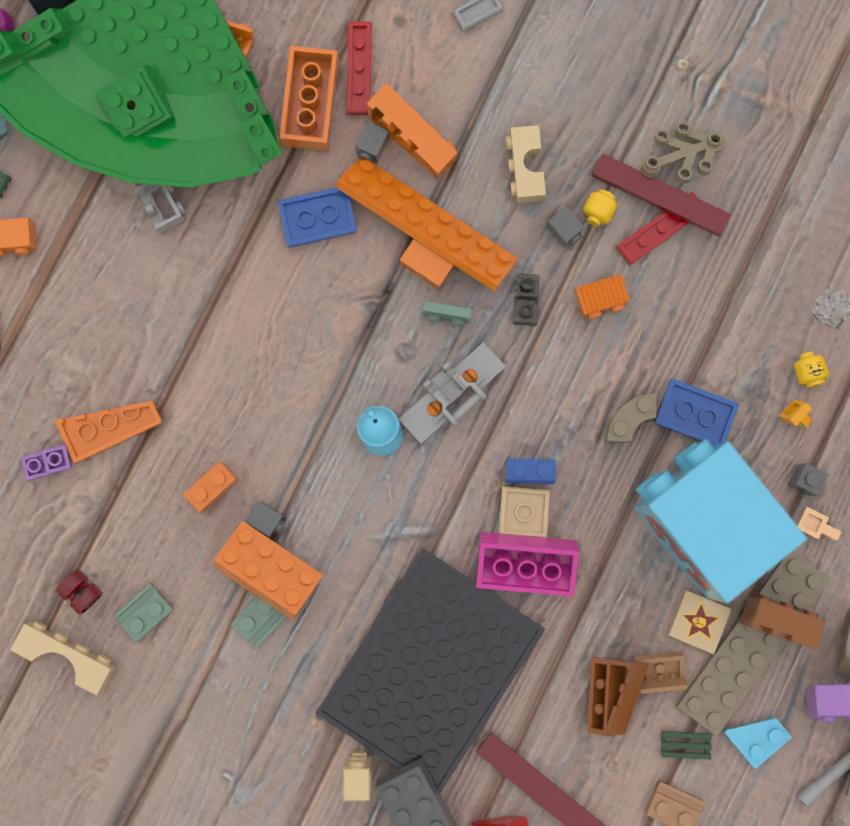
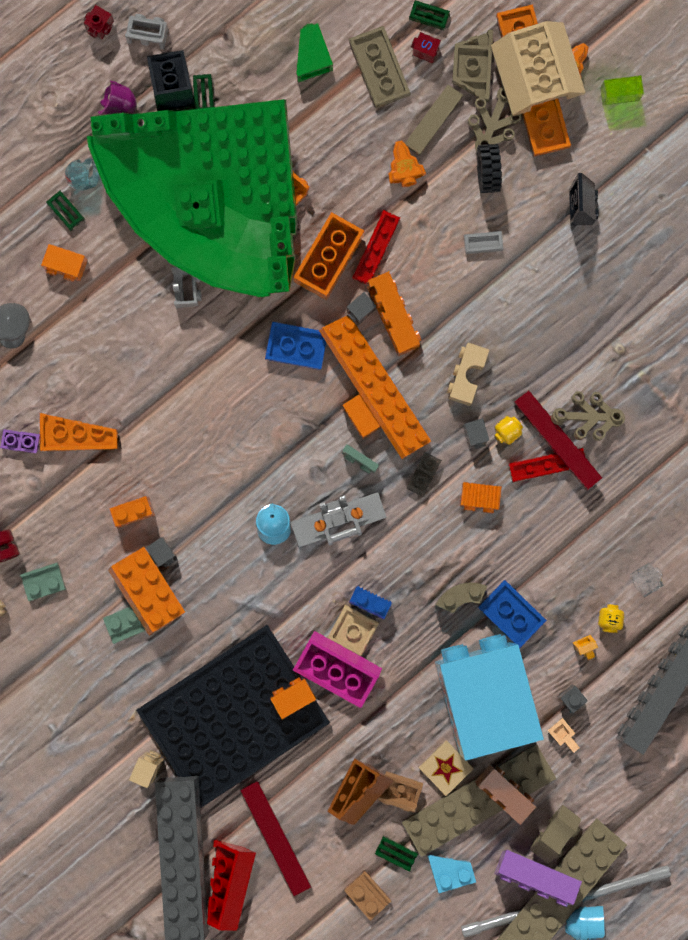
camera: 20 degrees right, 0 degrees up
(490, 619) = (293, 697): none -> orange brick

